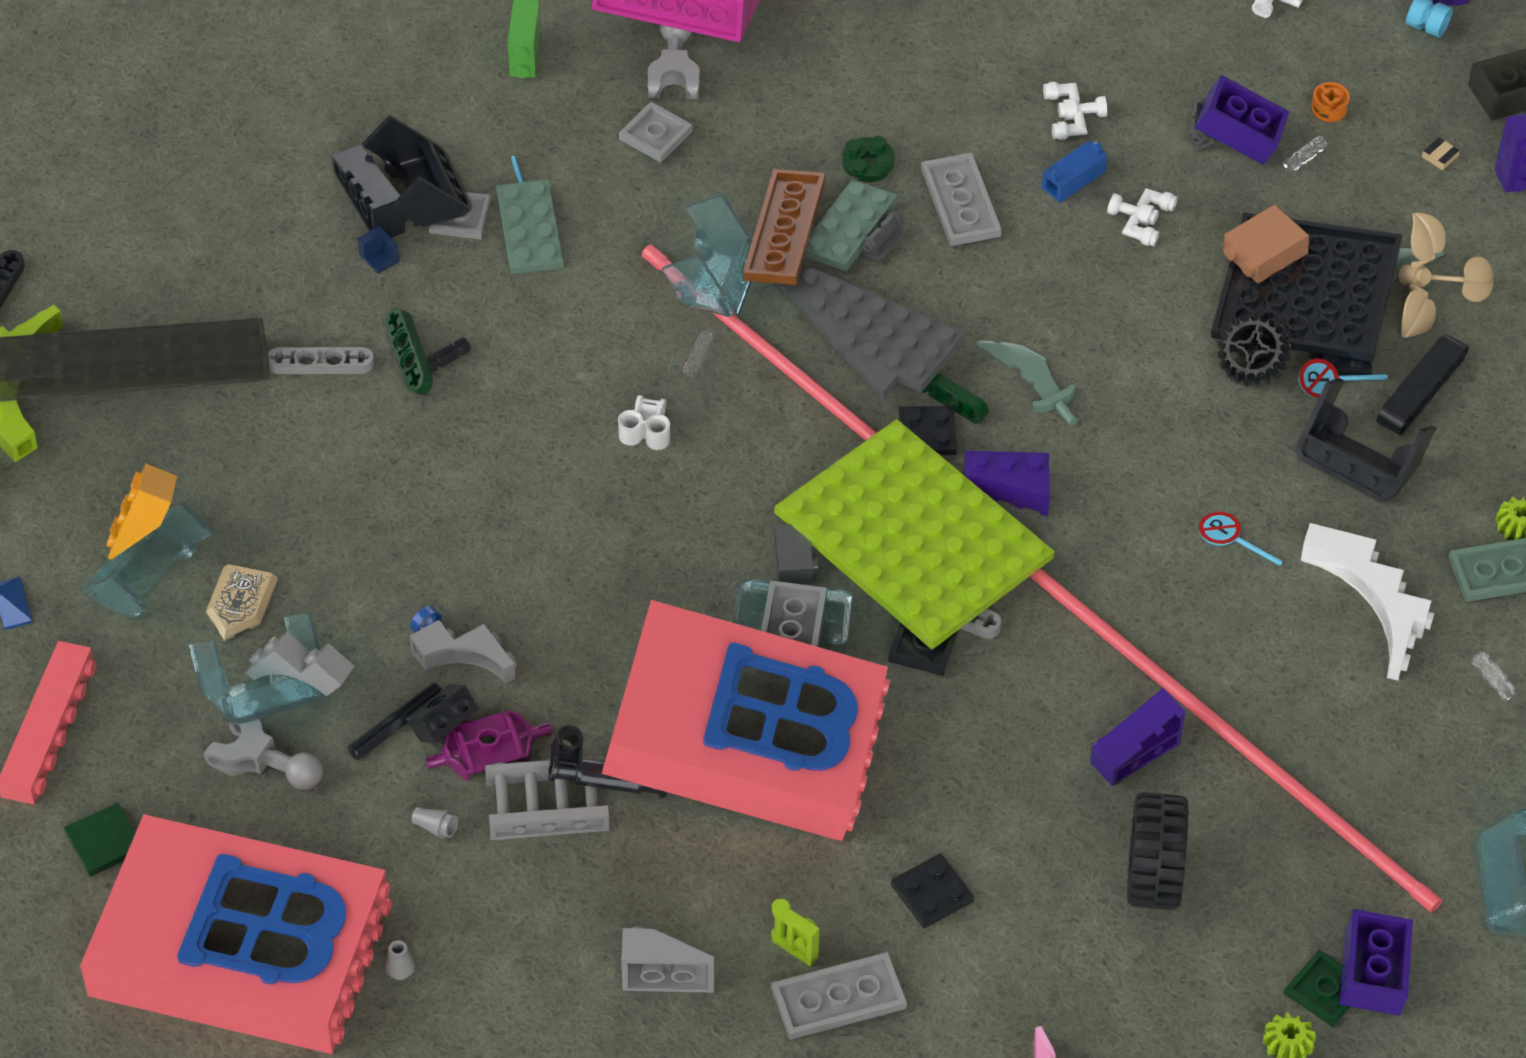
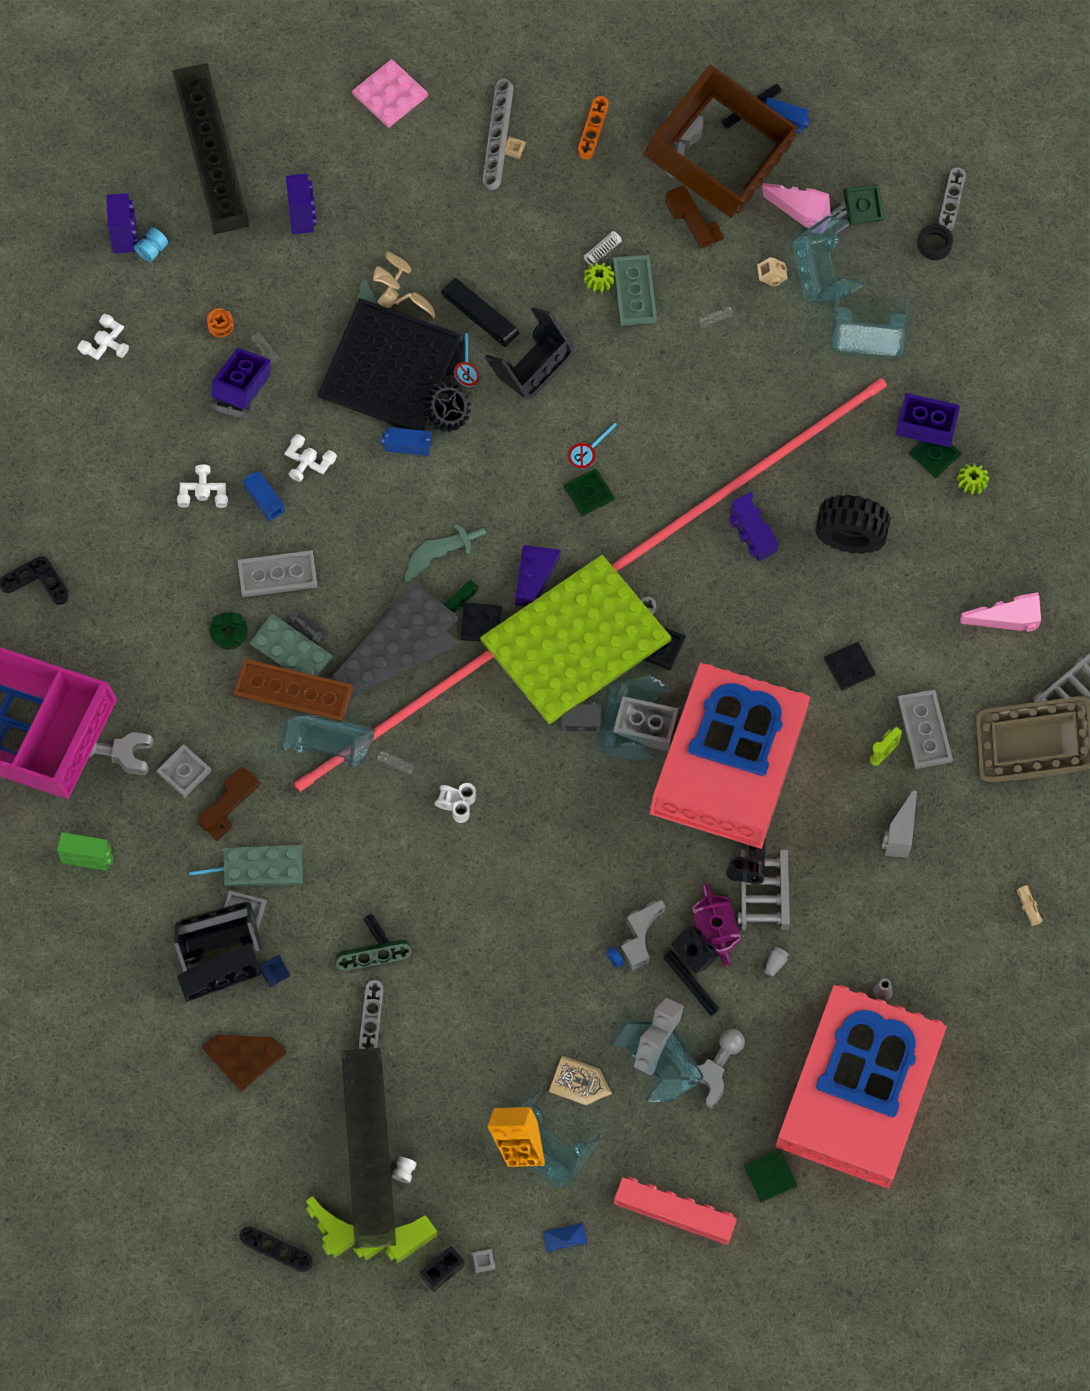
camera: 85 degrees left, 15 degrees up
(103, 411) = (404, 1169): none -> white wheel
(258, 234) = (243, 1057): none -> reddish brown plate
(636, 188) = (238, 788): none -> reddish brown piece
(1160, 540) = (588, 492): none -> dark green tile
(1193, 318) = (406, 441): none -> blue brick
(1265, 244) = (356, 383): nougat brick -> none
(1355, 562) = (645, 366): white arch -> none
(1440, 153) = (275, 263): tile -> none

